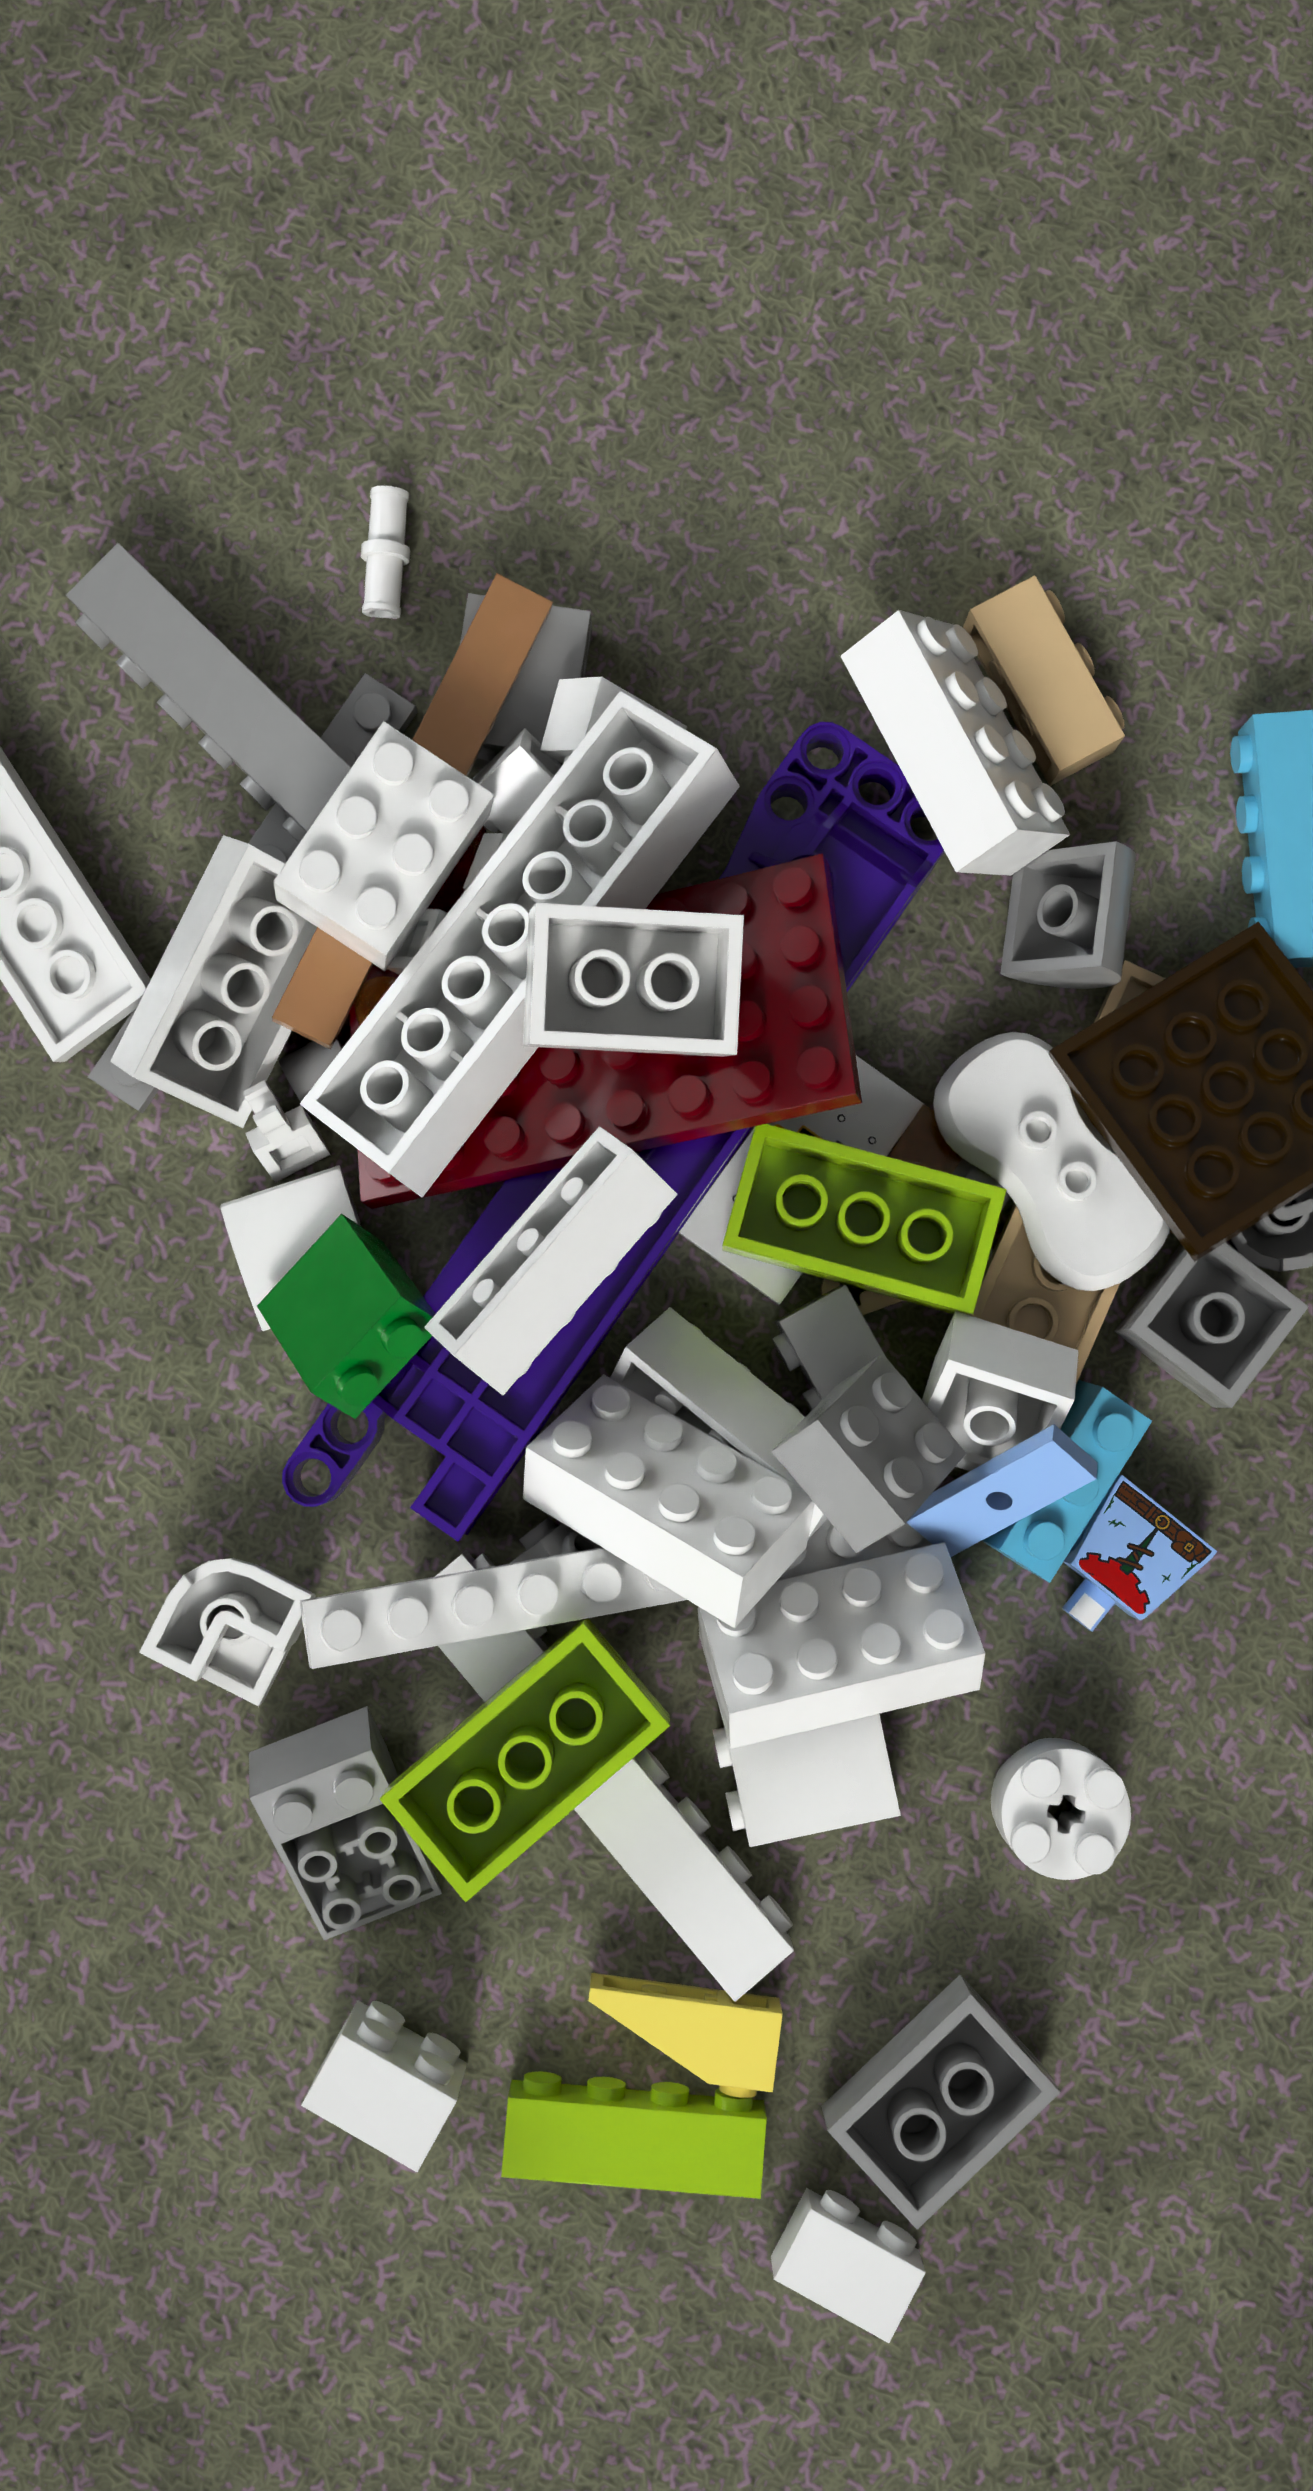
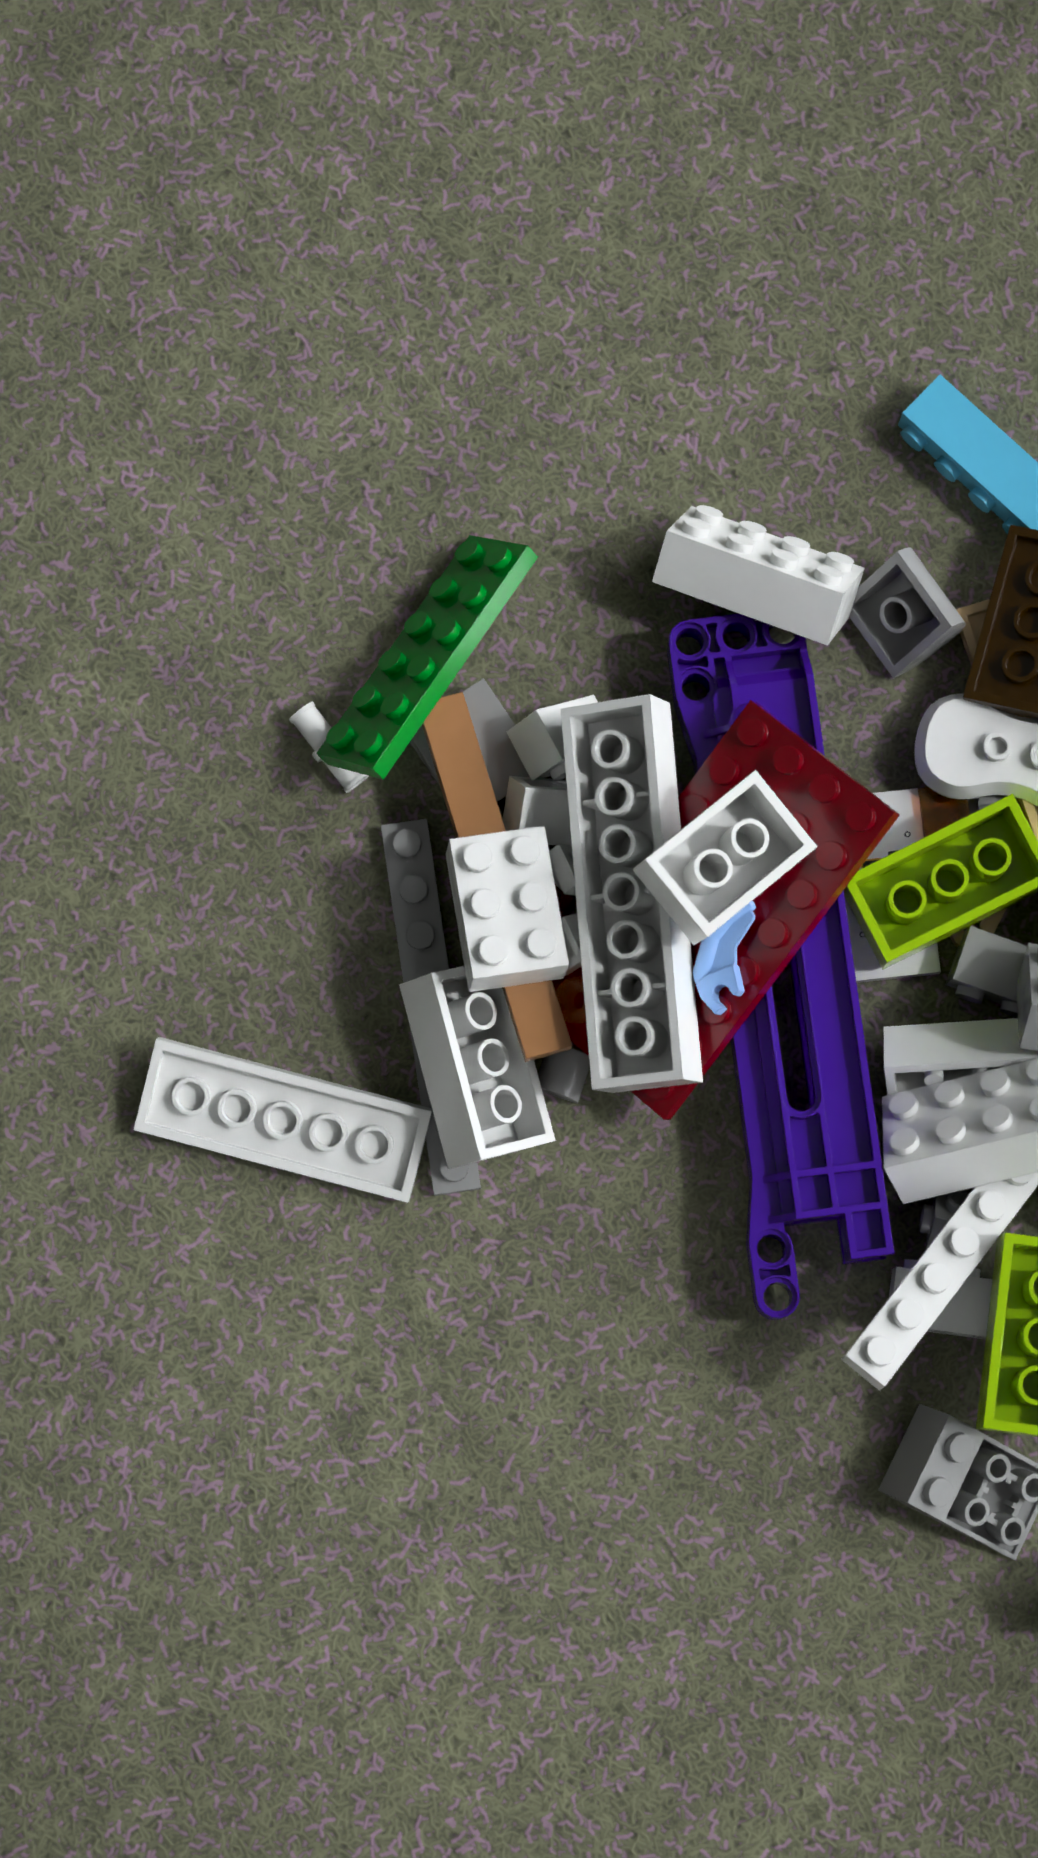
camera: 40 degrees left, 5 degrees down
(208, 687) = (318, 911): light grey brick -> none
(228, 1626) = (805, 1423): white brick -> none
(280, 1225) = (645, 1181): white slope -> none
(282, 1139) = (580, 1126): white plate -> none
(347, 1316) = (718, 1186): green brick -> none
(548, 1085) = (717, 960): none -> light blue piece
(551, 1260) = (808, 1050): white brick -> none
(552, 536) = (426, 656): none -> green plate
(1045, 679) = (767, 492): tan brick -> none

